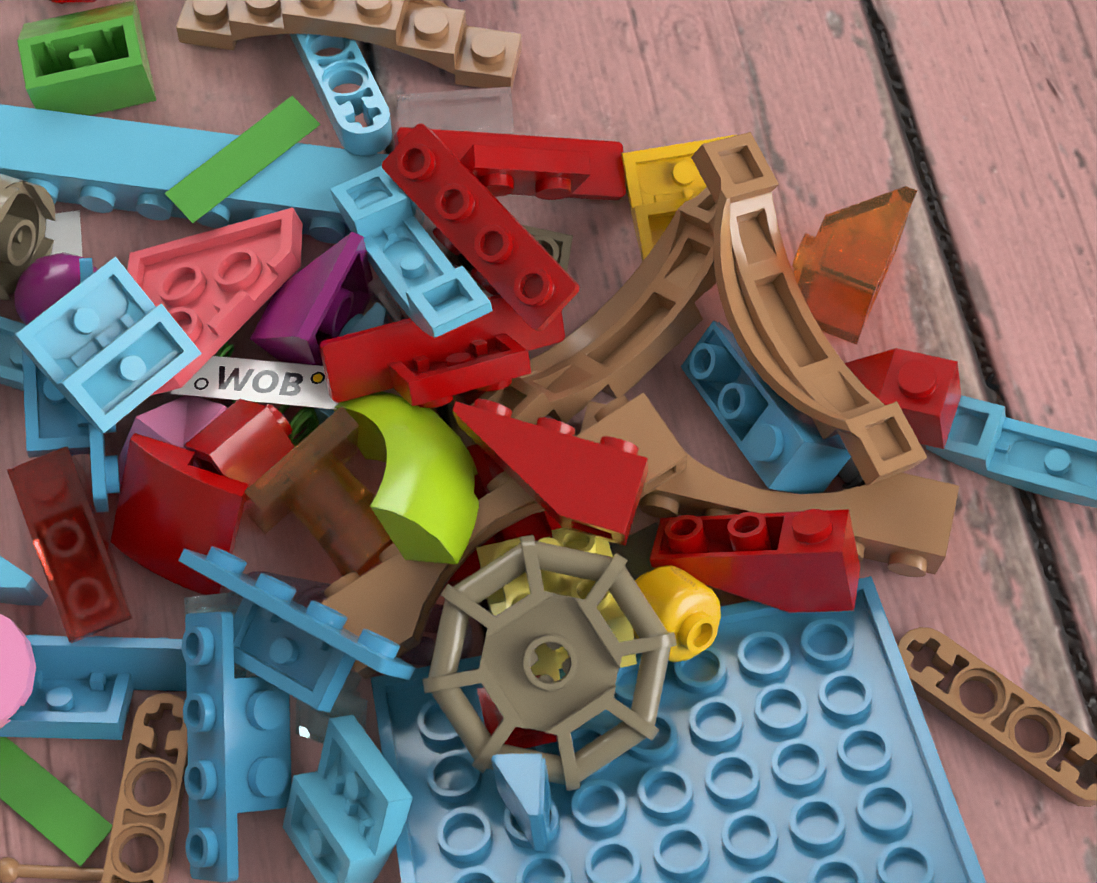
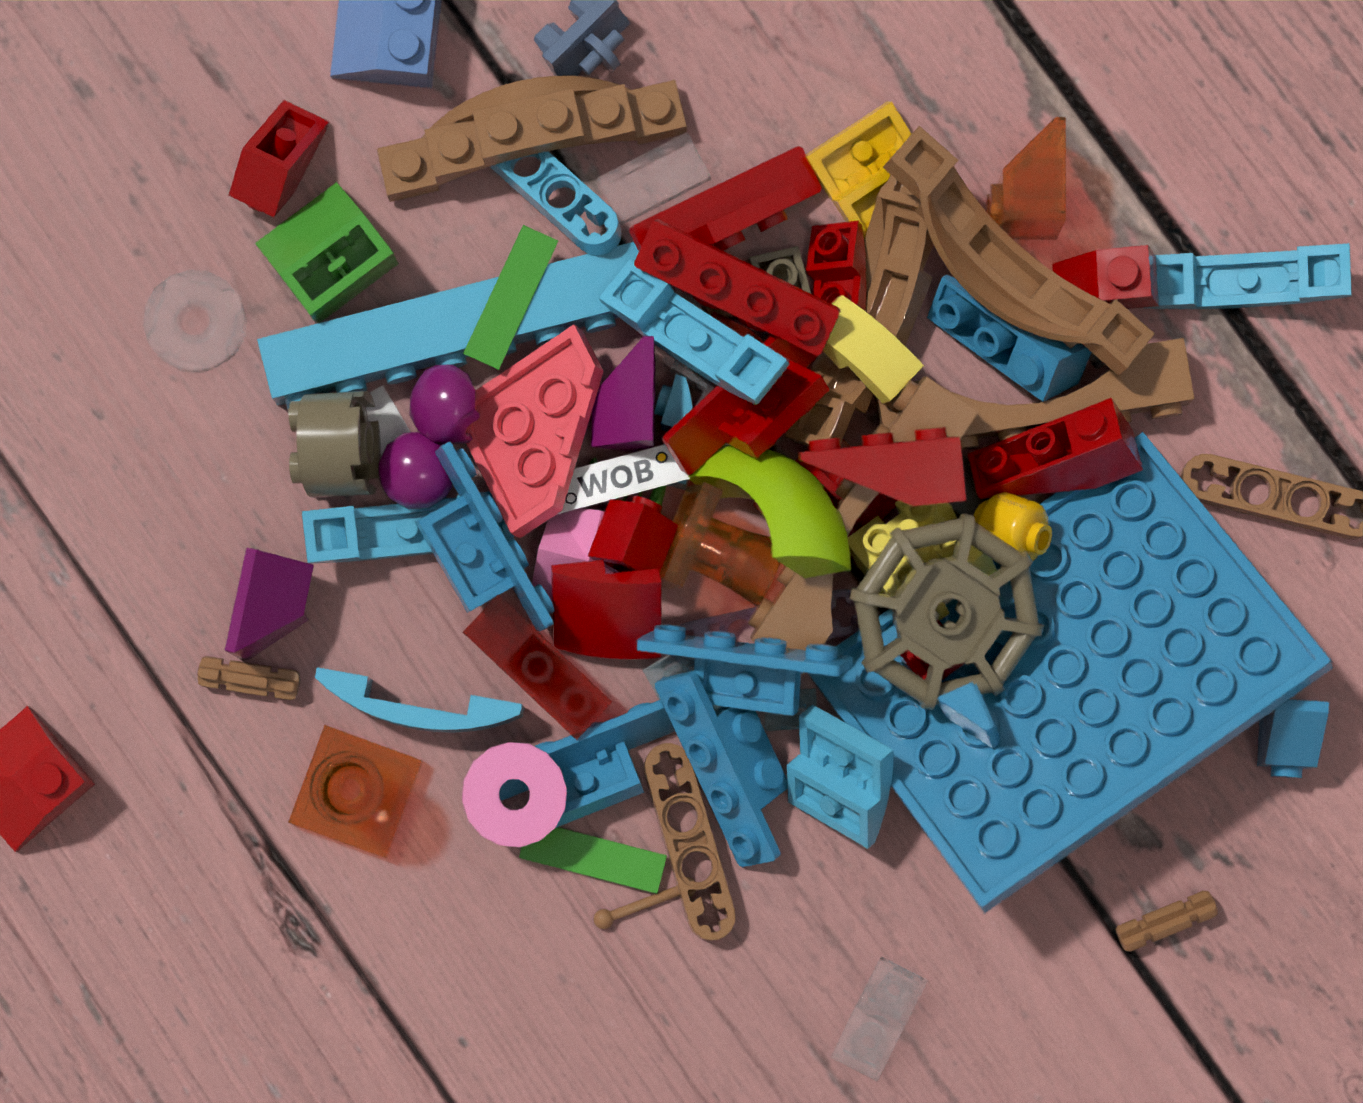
camera: 20 degrees left, 15 degrees up
(107, 345) = (500, 508): medium azure slope -> none
(118, 229) = (443, 405): none -> magenta hair
(594, 352) = (870, 351): none -> light yellow slope
(607, 275) = (838, 262): none -> red slope

